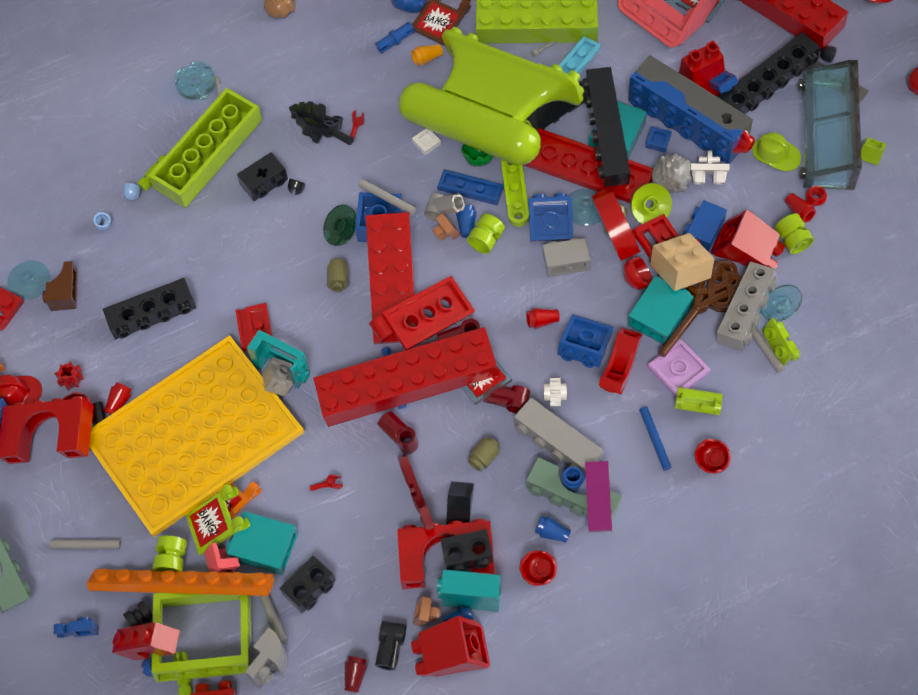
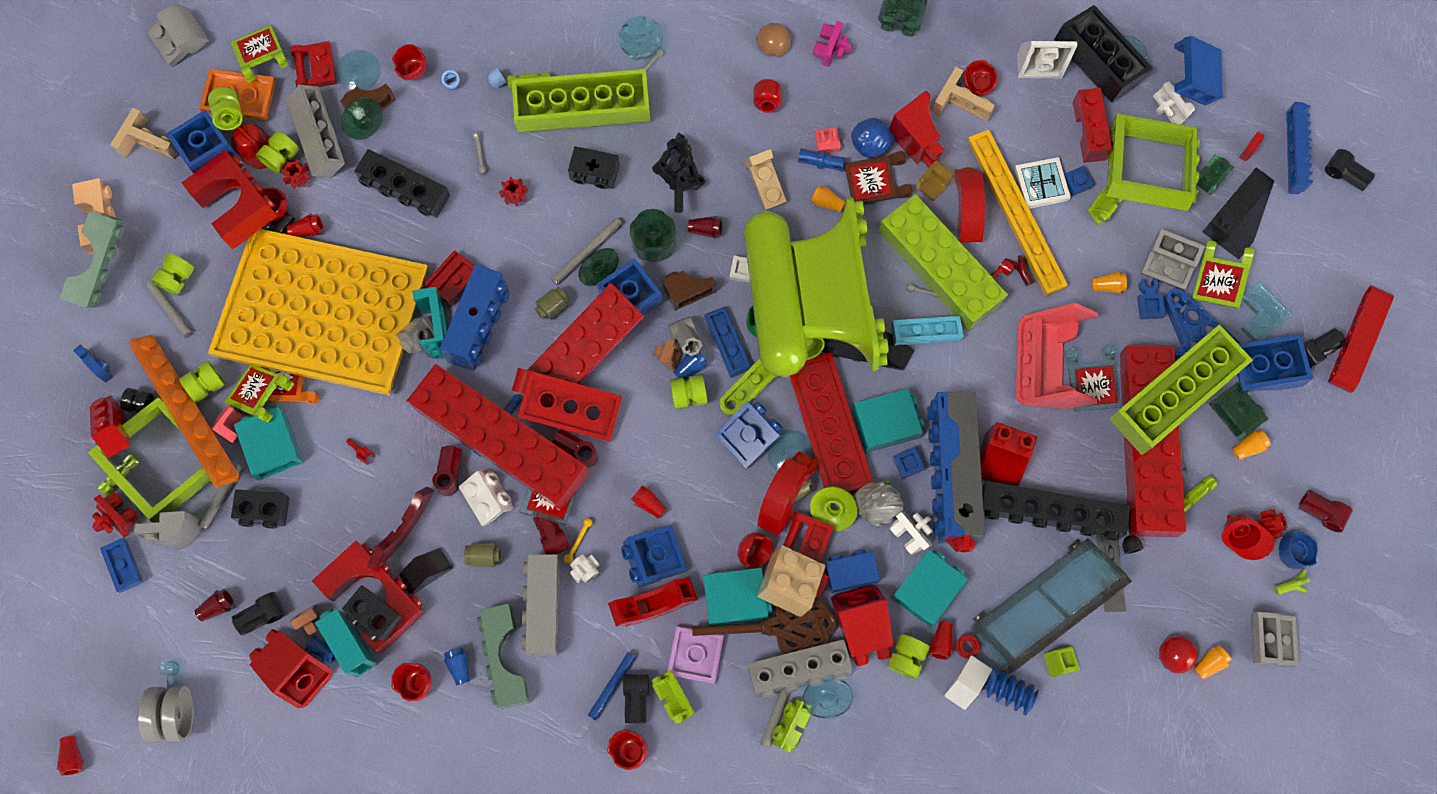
camera: 45 degrees right, 10 degrees up
(40, 374) = (277, 152): none -> lime wheel
(50, 336) = (315, 131): none -> light grey brick
(61, 236) = (409, 62): none -> red hair
(62, 517) = (172, 274): none -> lime wheel
(73, 297) = (357, 113): none -> clear green dish
(190, 251) = (481, 169): none -> light grey hinge
(229, 240) = (511, 185): none -> red gear
(294, 184) = (609, 200): black hinge -> none
(303, 328) = (475, 318): none -> blue brick
(317, 35) = (767, 95): none -> red head
(318, 225) = (586, 251): none -> light grey bar
(347, 170) = (657, 247): none -> clear green brick
(357, 121) = (712, 198): red hand -> none
(375, 77) = (765, 179): none -> tan bracket
(376, 138) = (706, 226): none -> dark red cone
(383, 24) = (827, 140): none -> coral tile
(387, 196) = (647, 284): light grey bar -> none
(409, 182) = (686, 290): none -> reddish brown arch
(441, 422) = (486, 496): none -> white bracket
(521, 369) = (568, 558): none -> yellow hinge
(566, 257) = (723, 476): light grey brick -> none
(573, 478) = (508, 642): blue cone -> none
(598, 496) = (507, 683): magenta tile -> none
(607, 127) = (873, 411): black brick -> none
(673, 422) = (635, 692): none -> black piece
(723, 82) = (1009, 476): blue plate -> none
(757, 187) = (930, 588): none -> teal brick
(776, 152) = (985, 577): lime piece -> none
(843, 212) = (968, 682): none -> white slope
(867, 191) = (1010, 690): none -> blue piece

